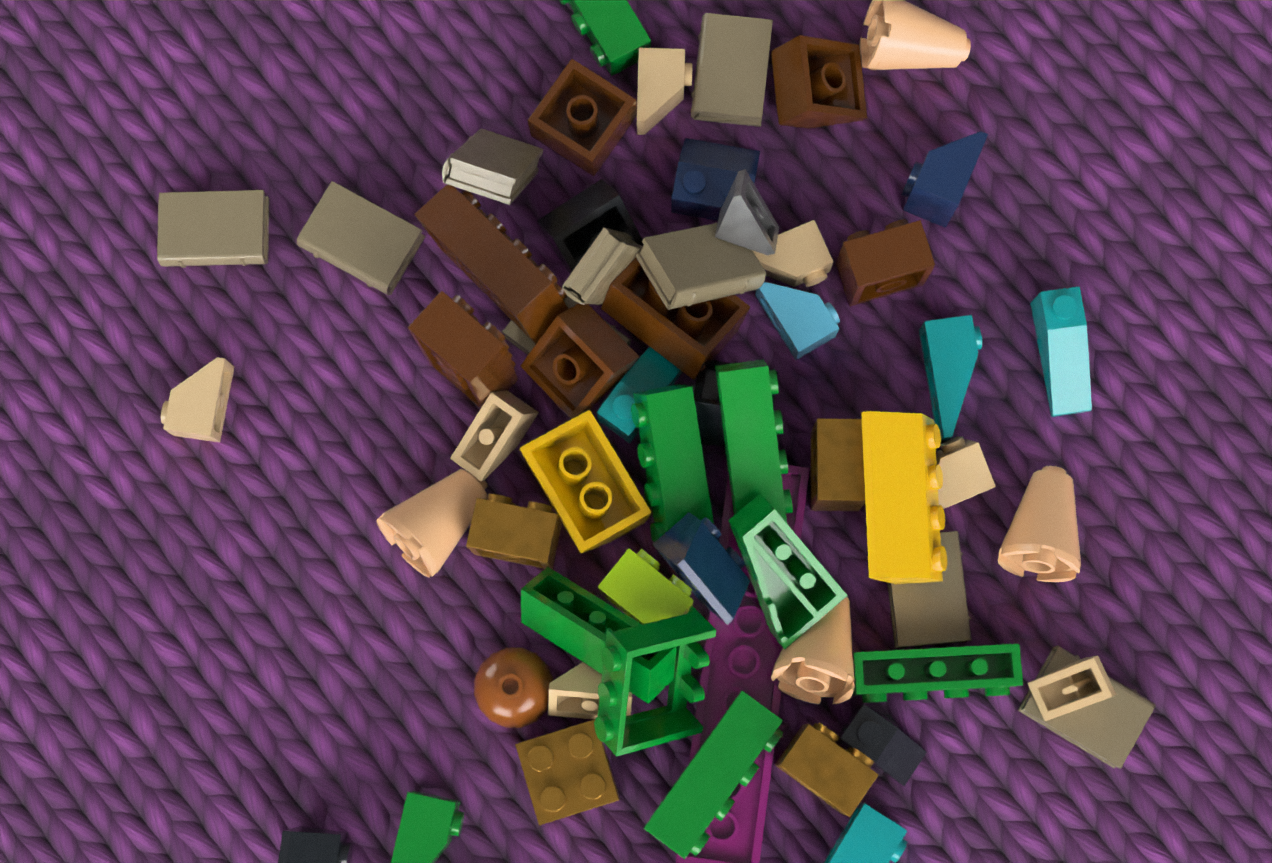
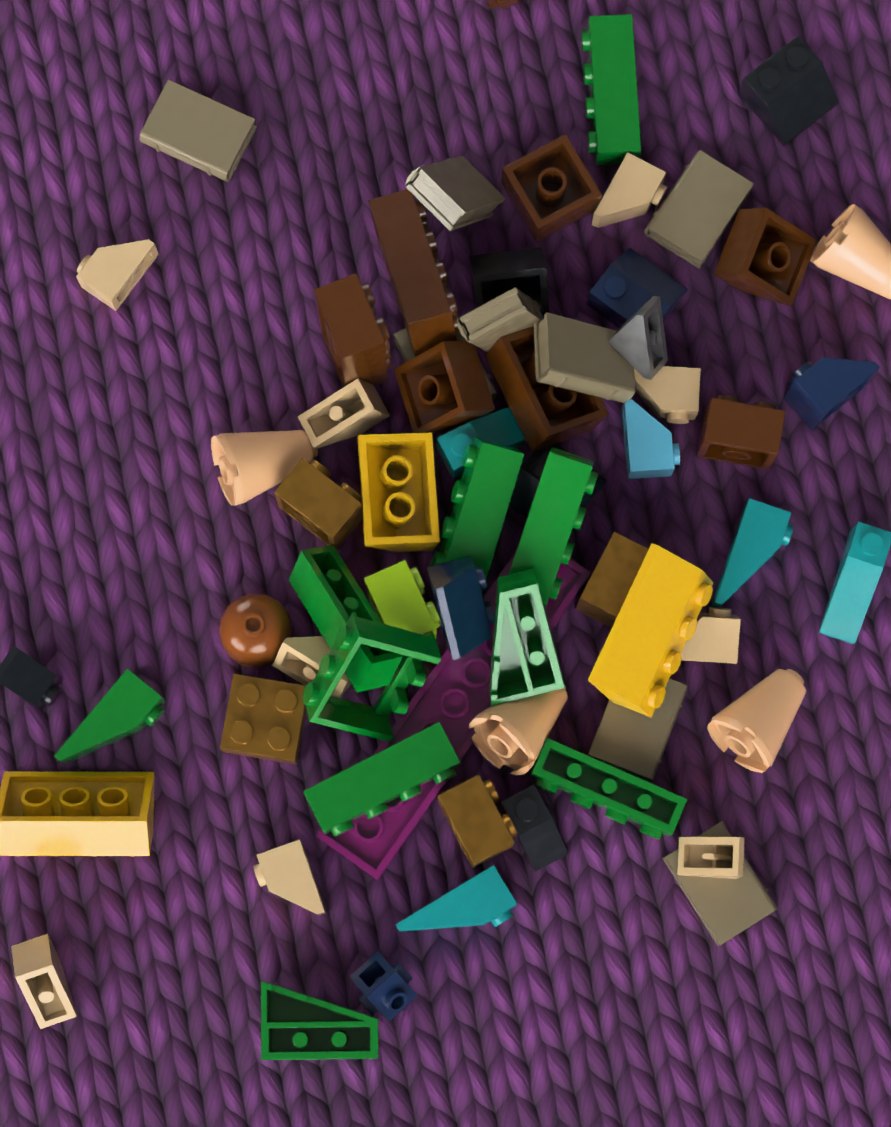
camera: 20 degrees right, 0 degrees up
(360, 238) = (315, 199): dark tan piece -> none

